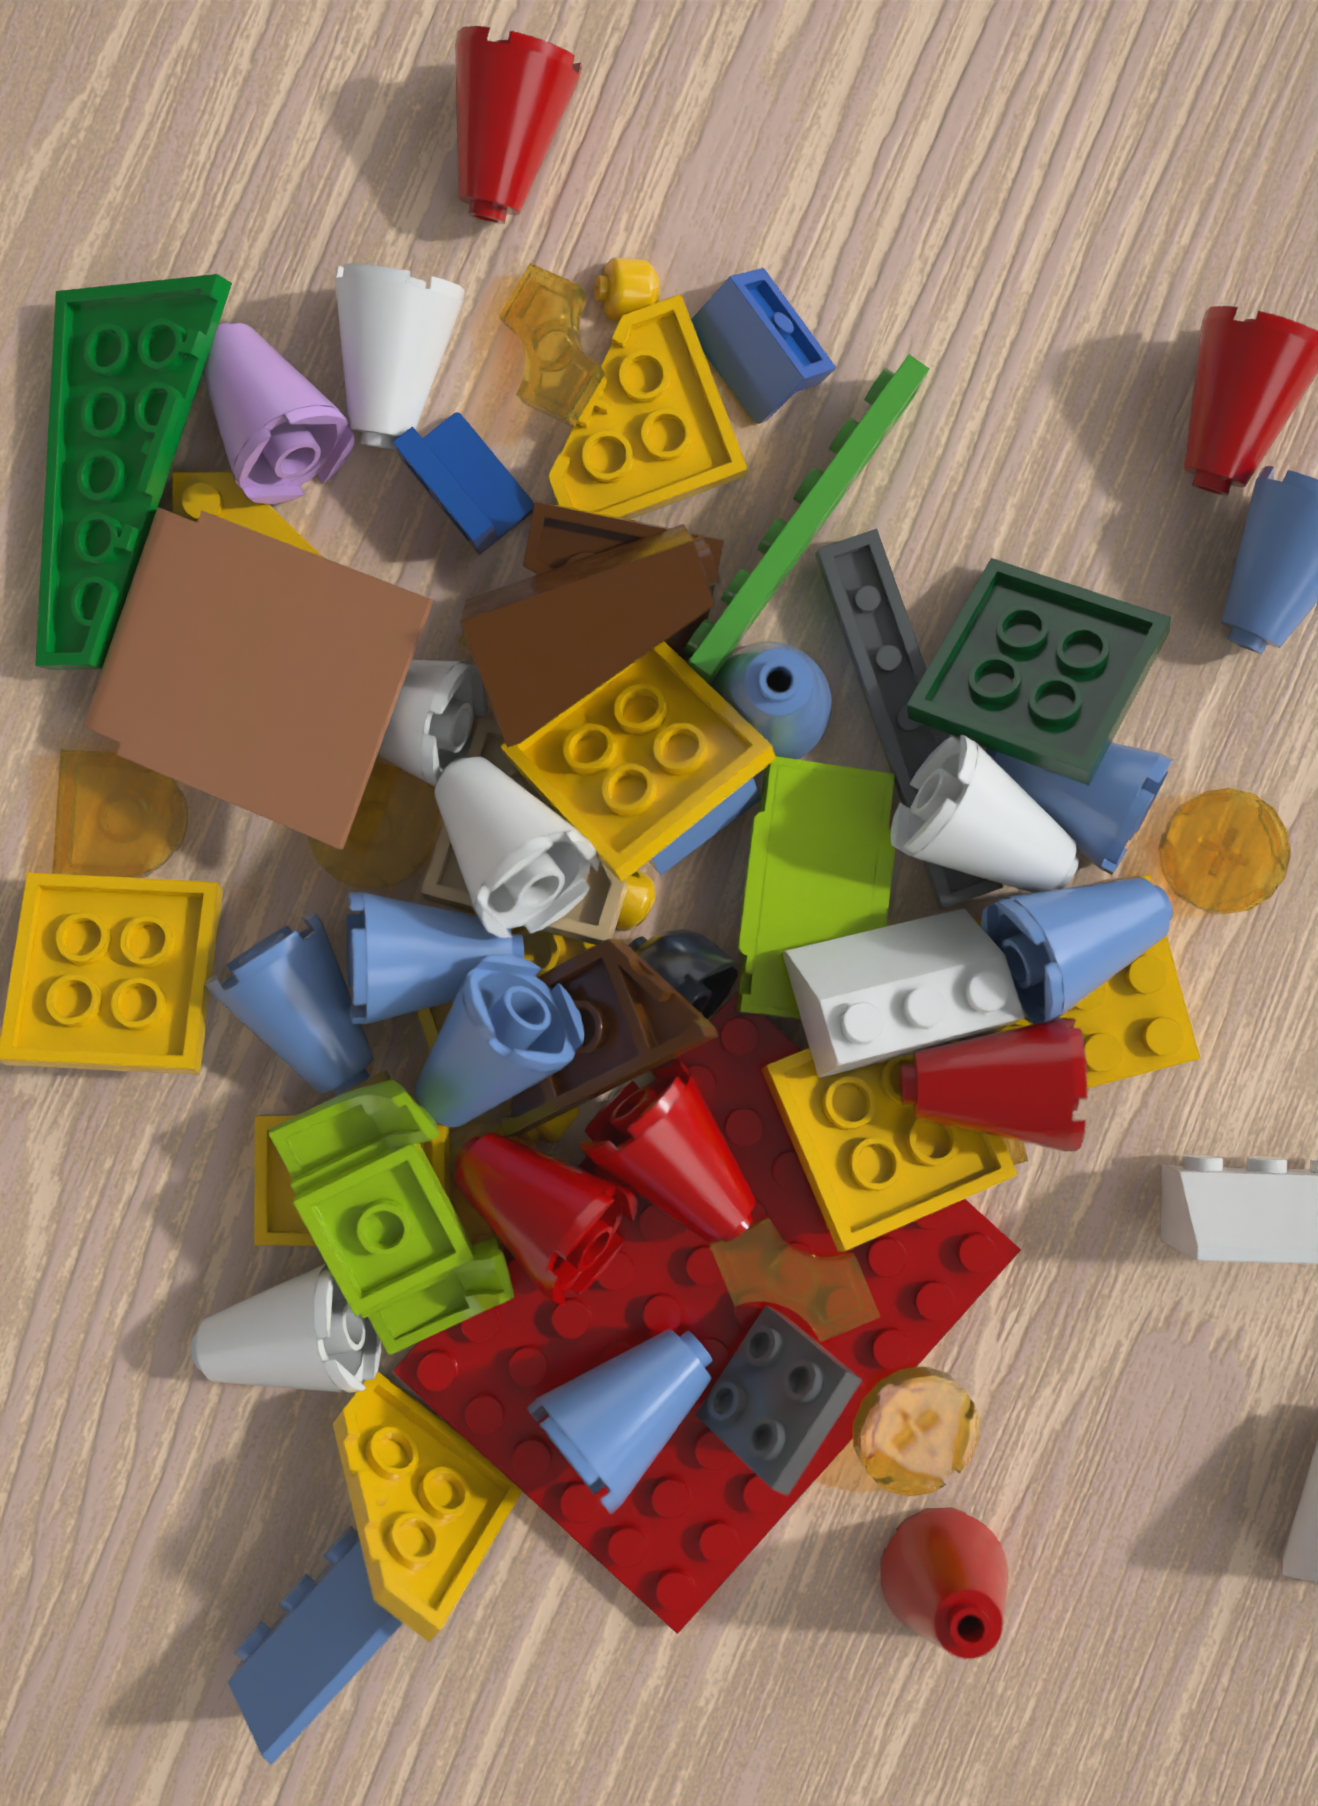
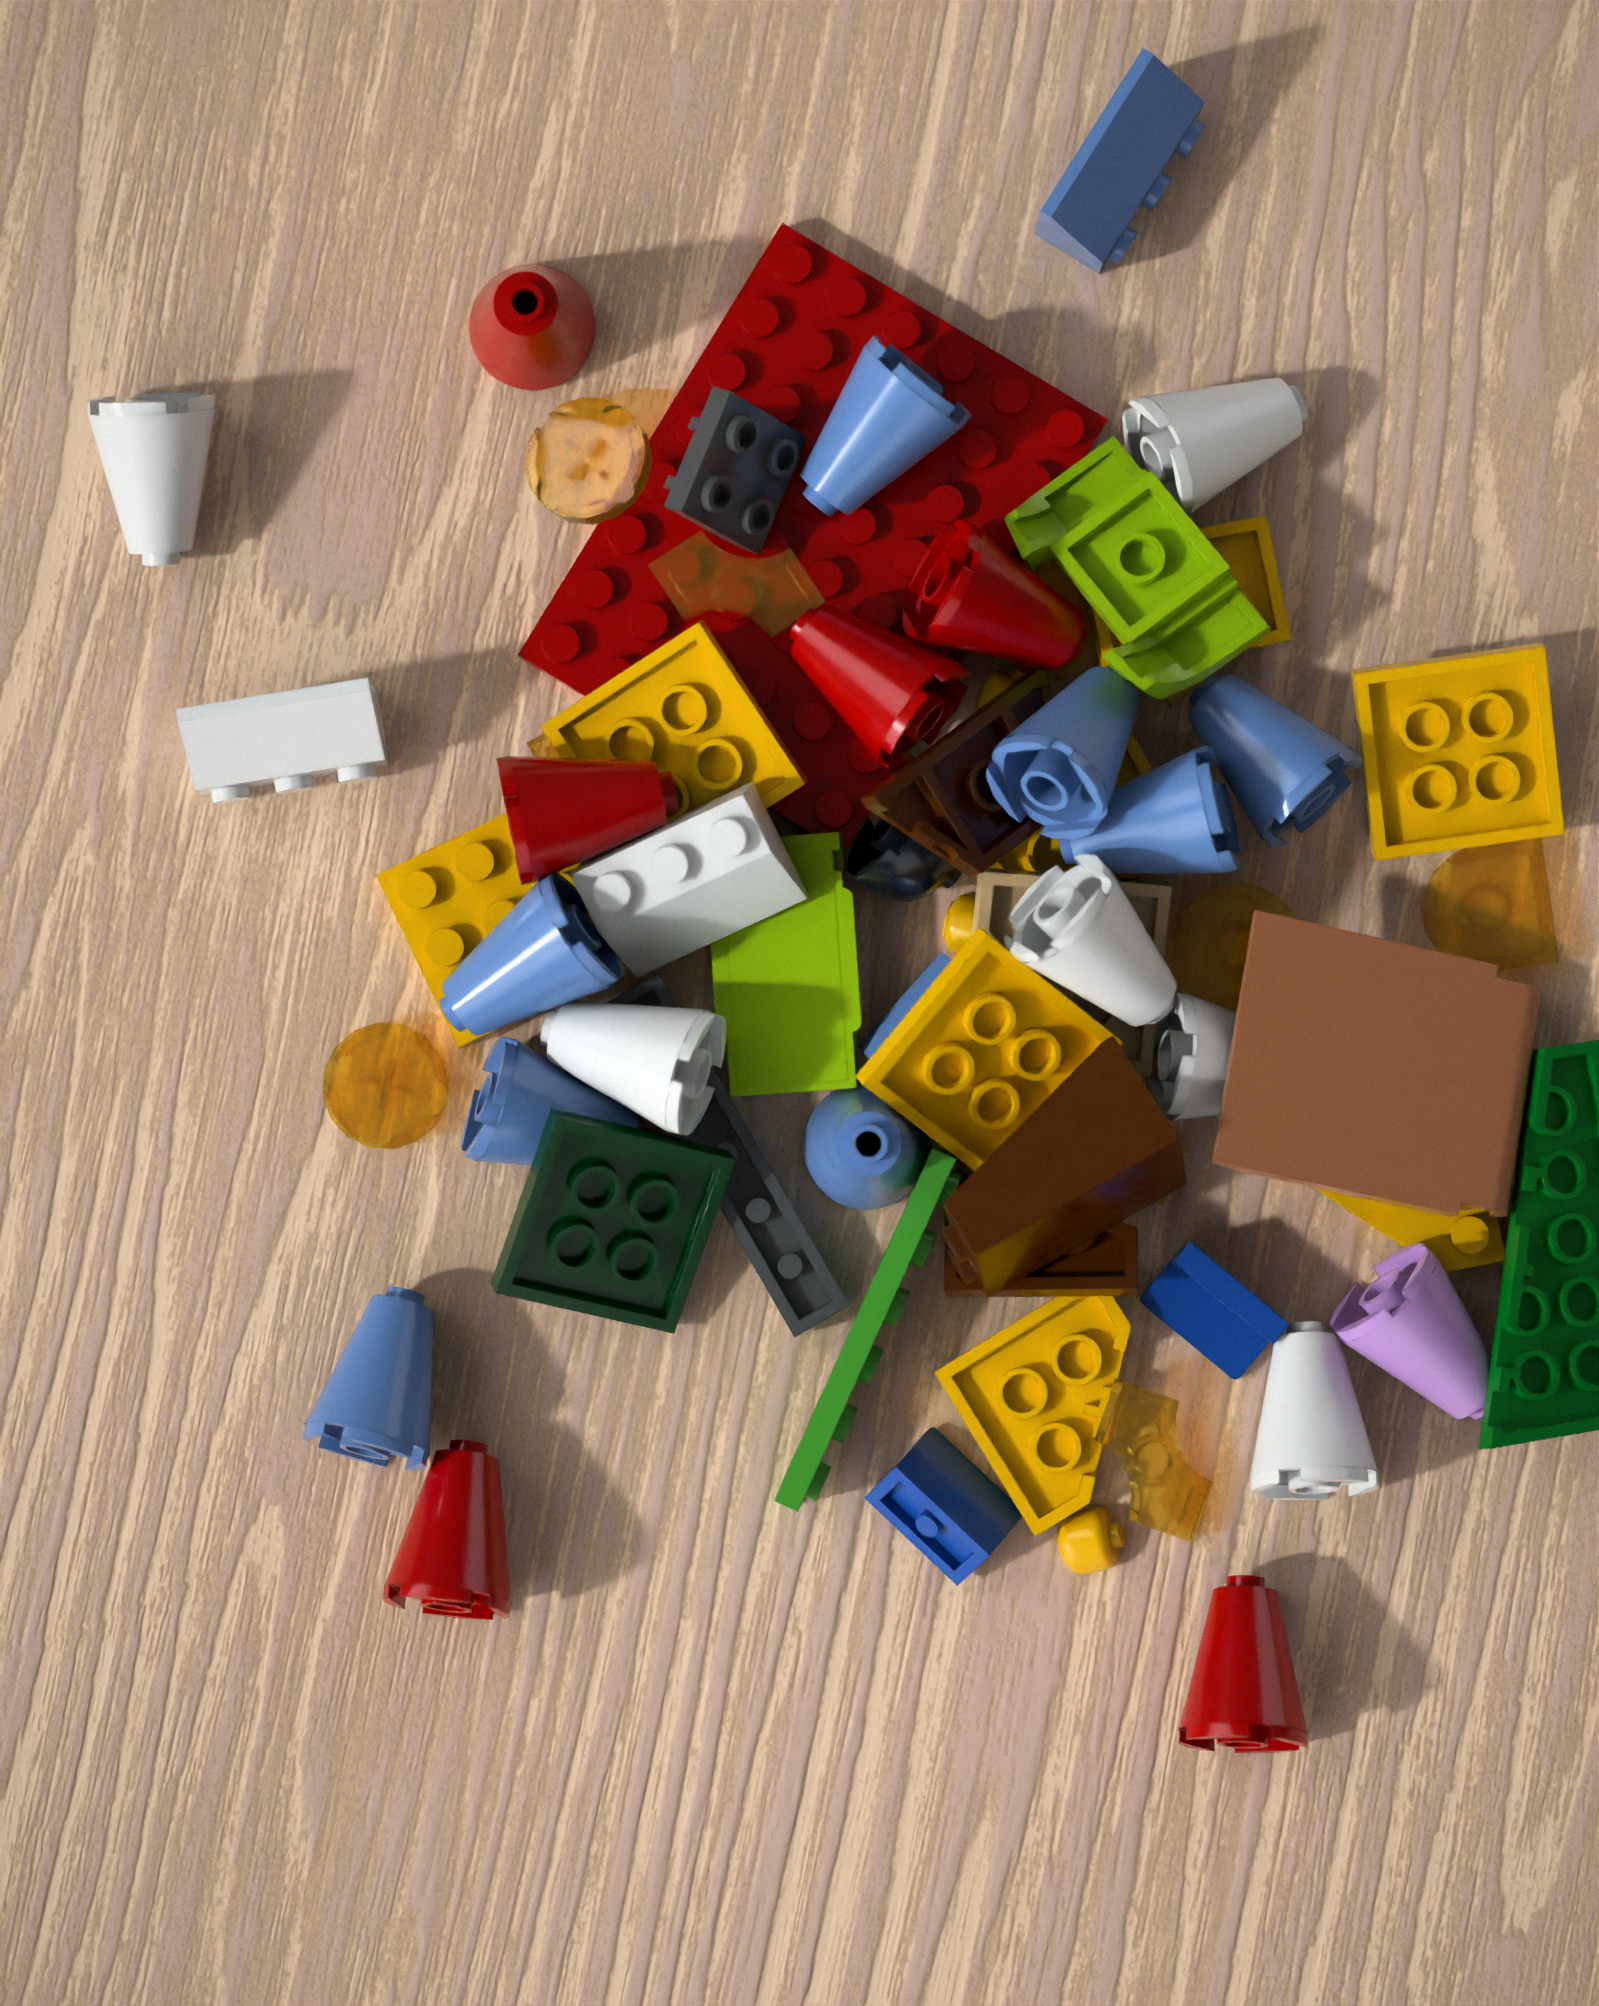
camera: 170 degrees right, 0 degrees up
(418, 1502) = (1056, 309): yellow plate -> none

